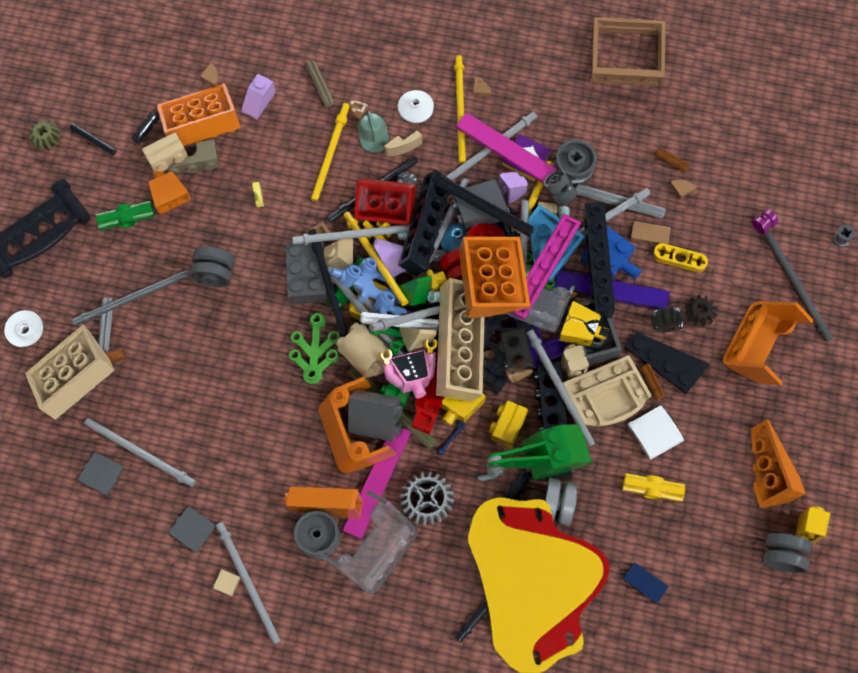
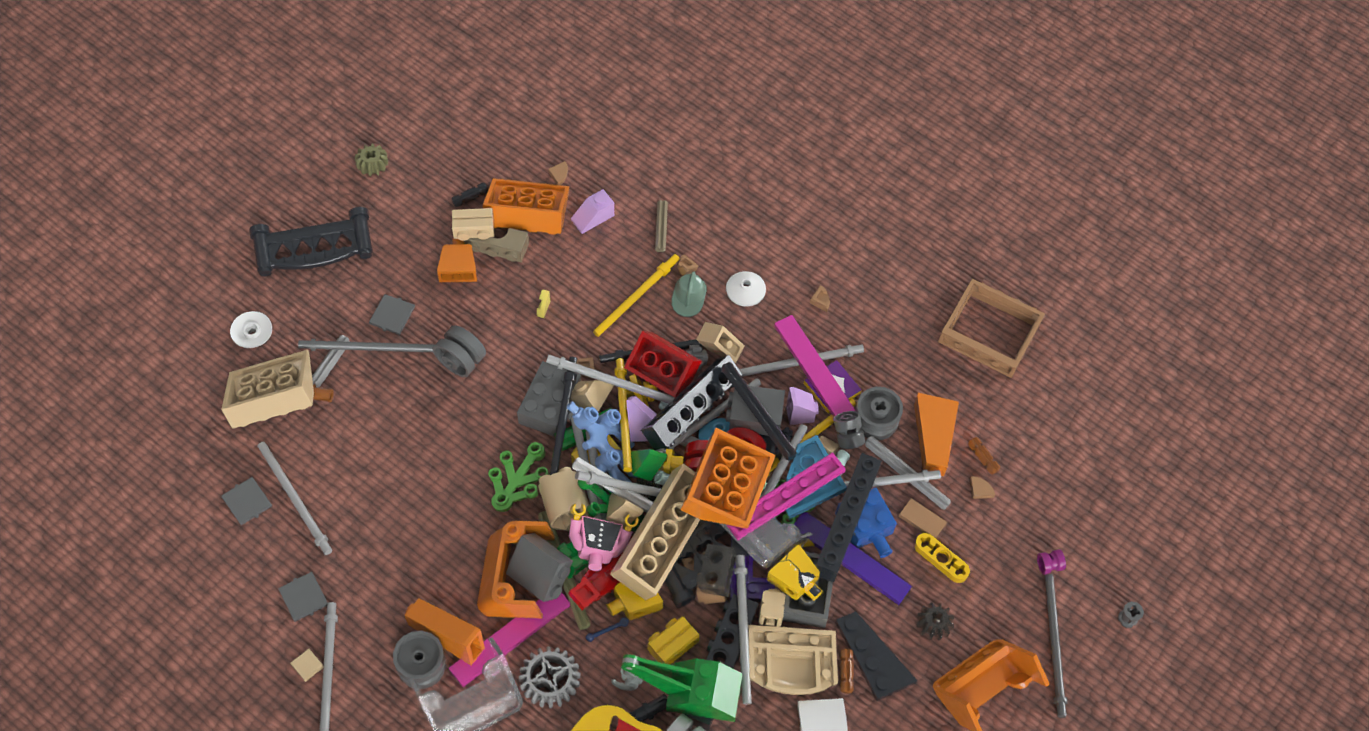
camera: 20 degrees right, 10 degrees down
(93, 139) = (415, 184): black bar -> none
(125, 216) = (405, 267): green piece -> none
(135, 260) = (392, 314): none -> dark grey piece
(398, 146) = (700, 316): tan slope -> none
(419, 160) = (720, 341): none -> tan slope
(459, 68) = (808, 270): yellow bar -> none
(626, 157) = (935, 430): none -> orange slope
(668, 319) = (894, 613): clear smoke gear -> none

